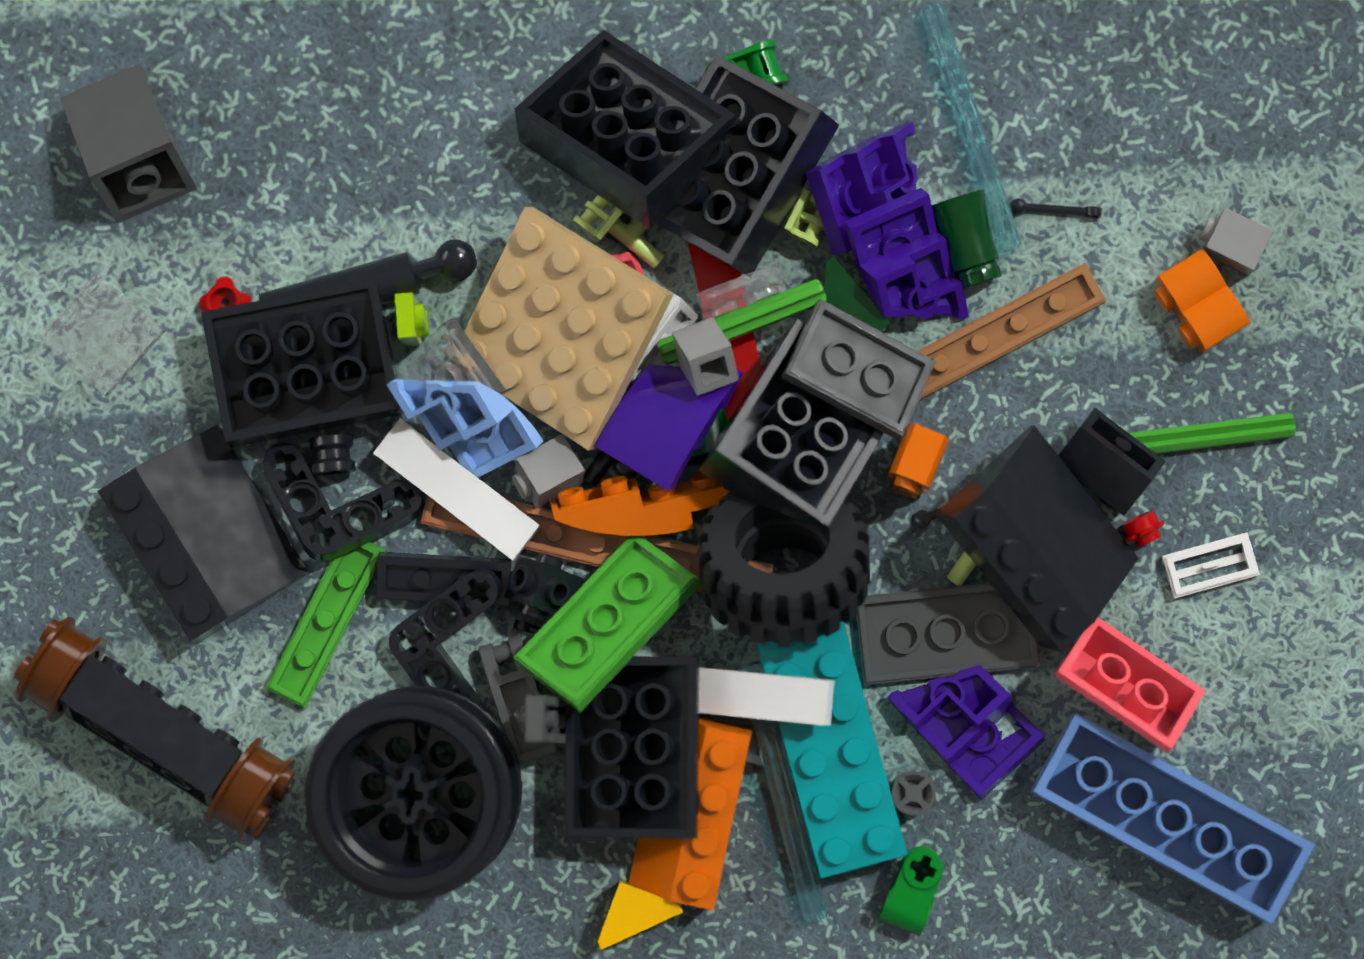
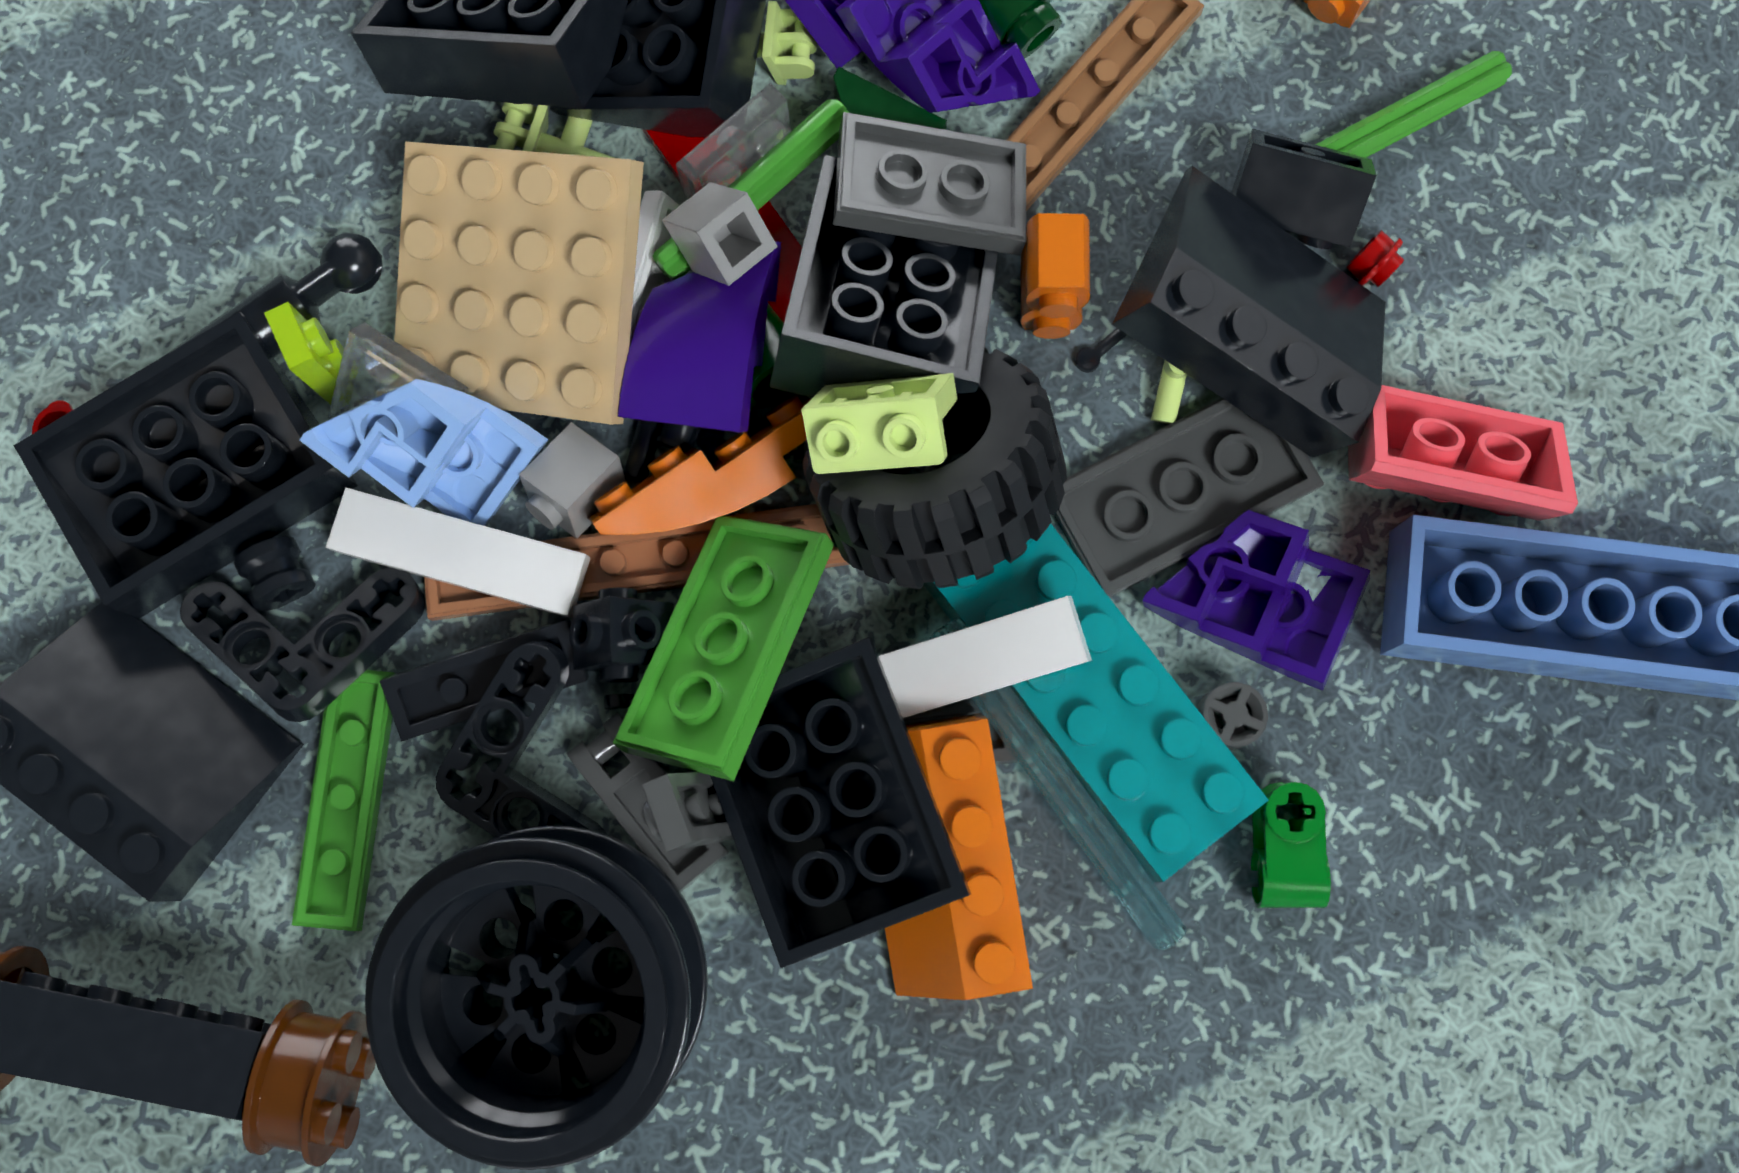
camera: 25 degrees left, 5 degrees down
(634, 912) = (921, 1036): yellow slope -> none
(755, 527) = (879, 423): none -> yellowish green bracket
(1173, 576) = (1441, 304): white tile -> none

